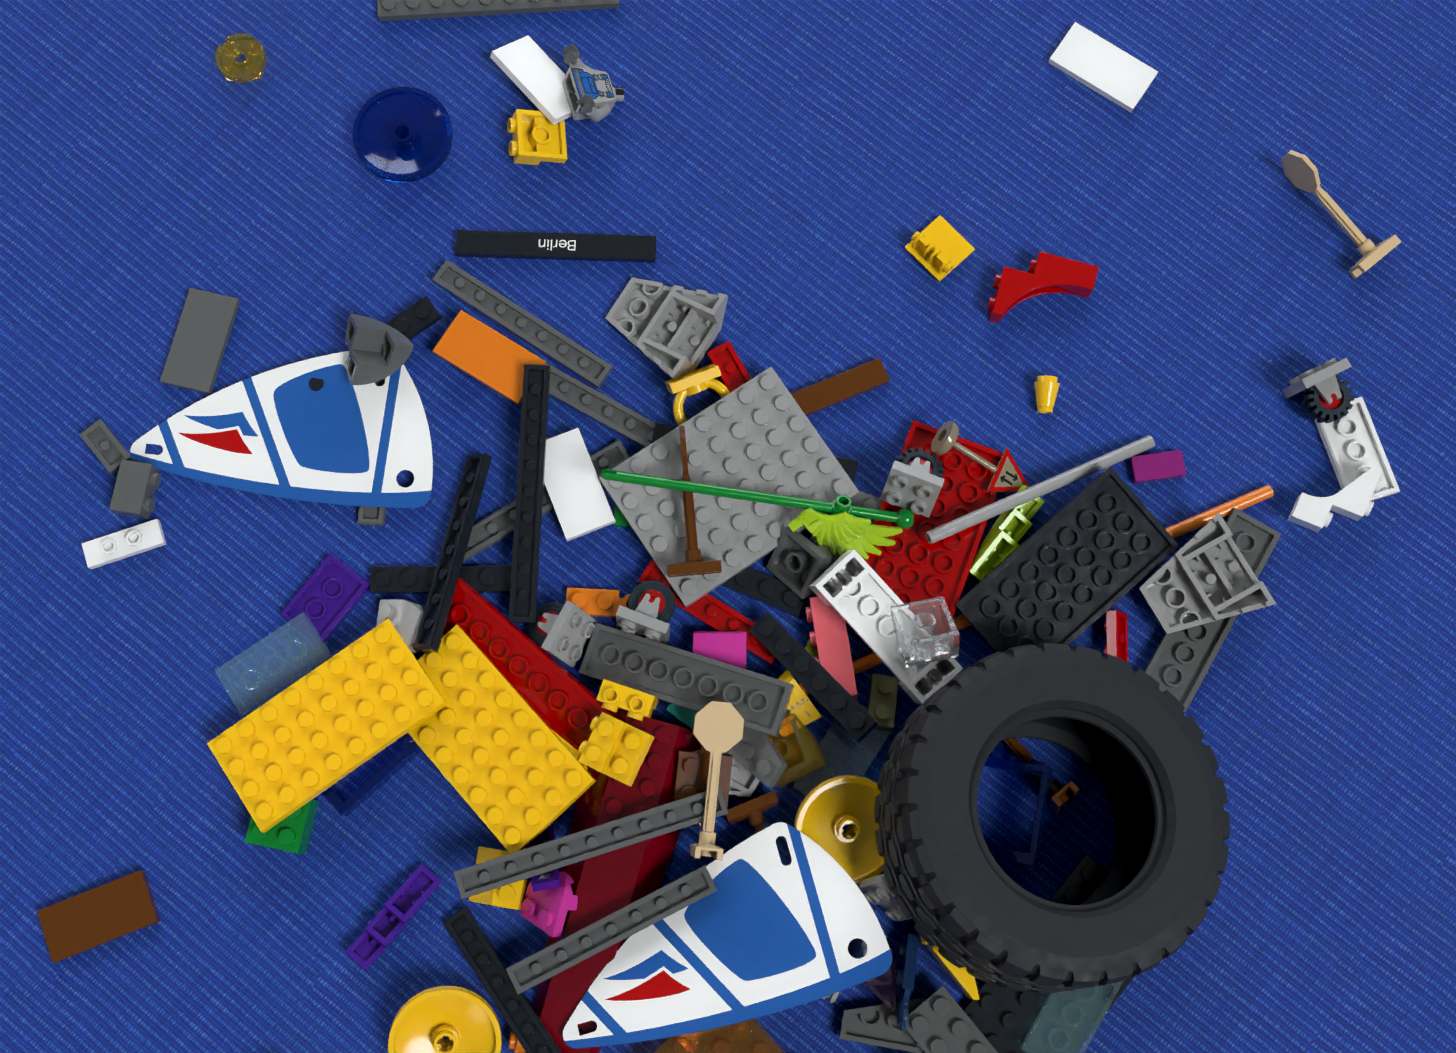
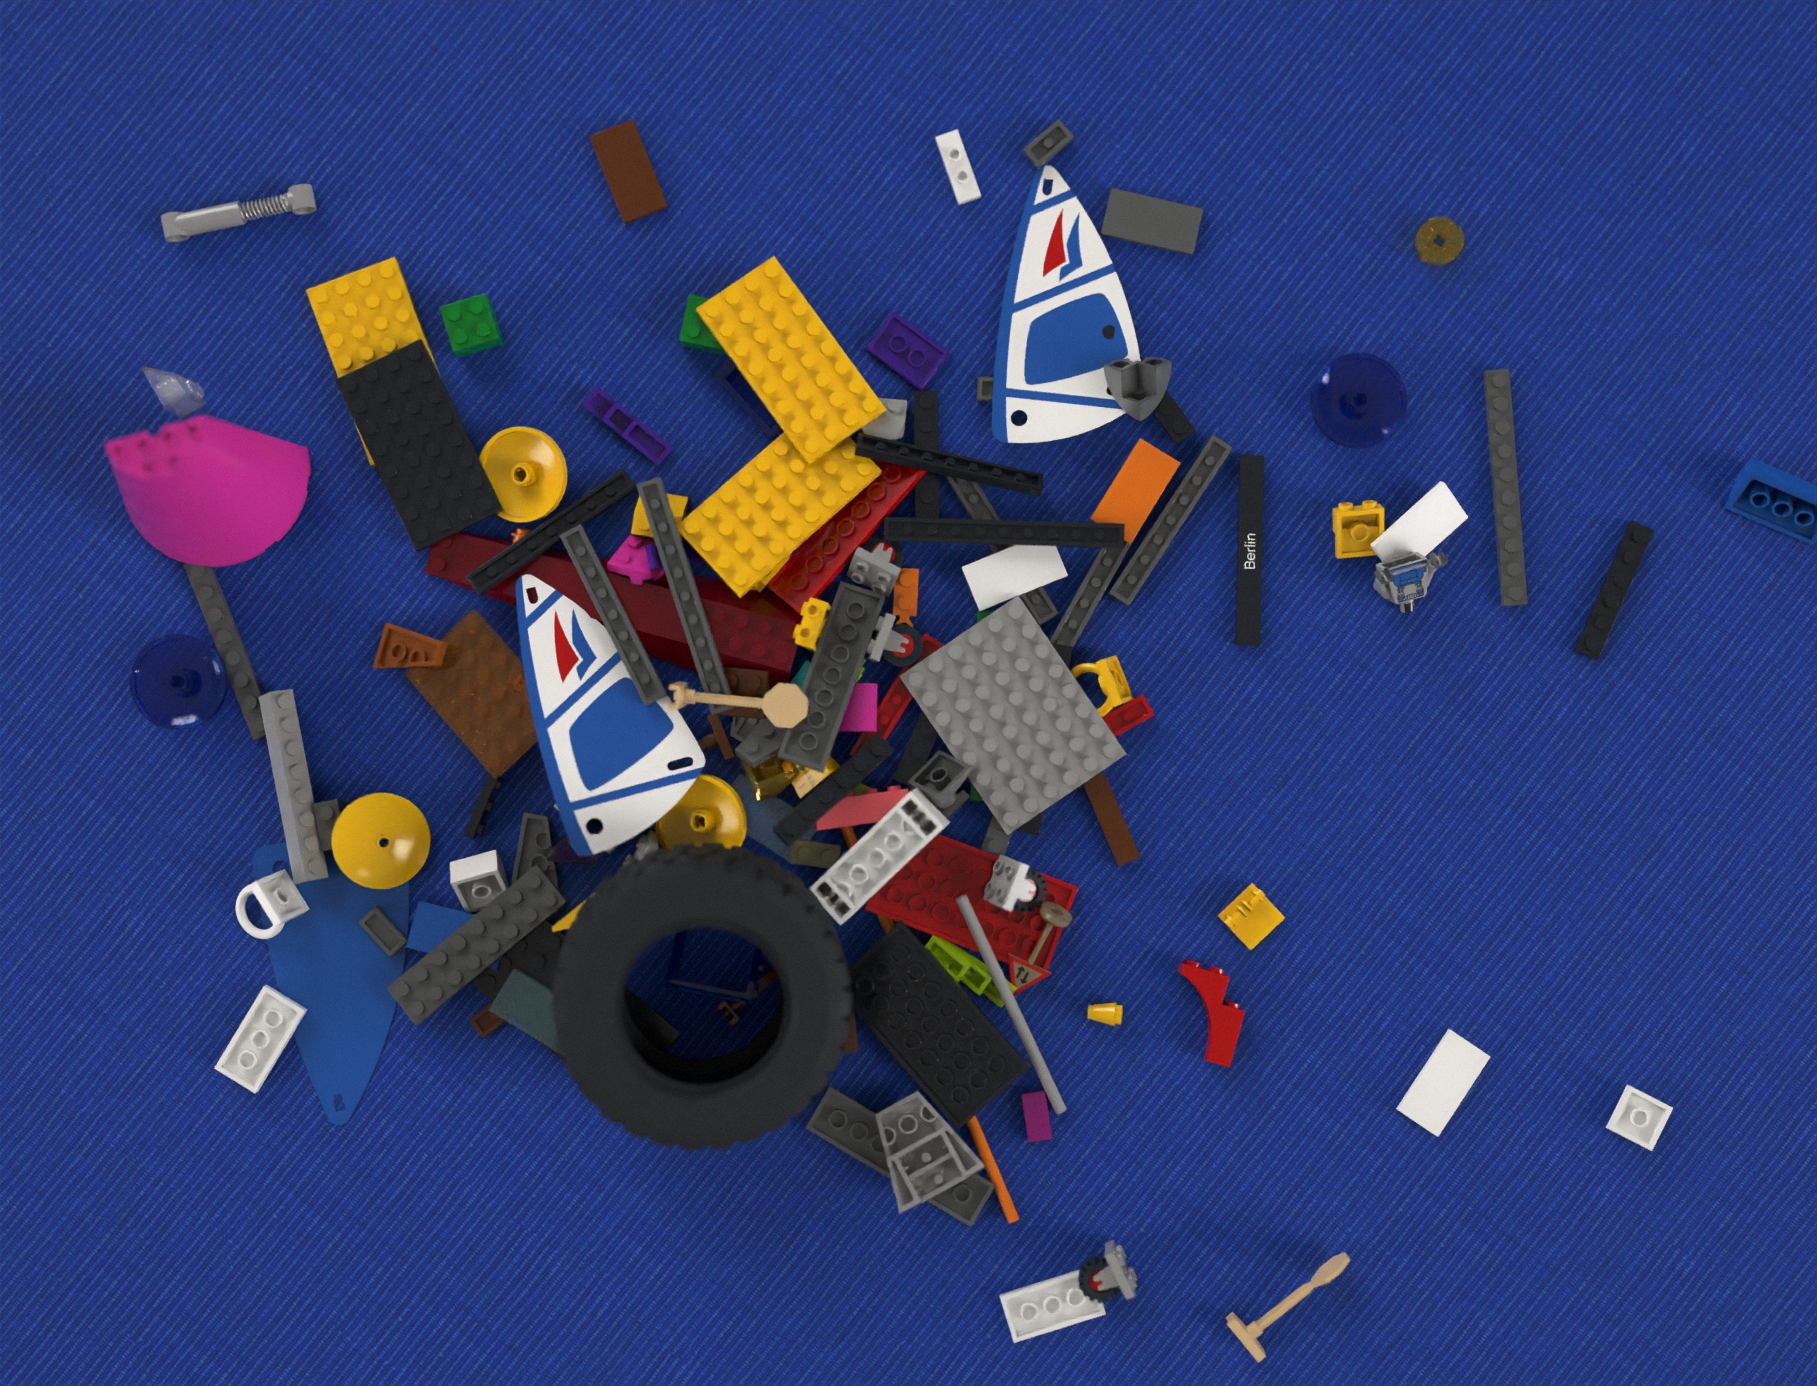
camera: 90 degrees right, 10 degrees up
(135, 489) = (1007, 174): dark grey brick -> none
(273, 663) = (848, 308): clear light blue tile -> none
(615, 748) = (768, 614): yellow plate -> none
(669, 323) = (1171, 657): light grey wedge -> none
(694, 564) = (936, 682): reddish brown piece -> none
(845, 532) = (965, 821): lime animal -> none
(902, 518) = (988, 815): green bar -> none
(906, 975) = (572, 869): dark blue plate -> none
(925, 631) = (870, 890): clear slope -> none
(1117, 634) = (865, 1069): red plate -> none
(1350, 502) = (1001, 1294): white arch -> none

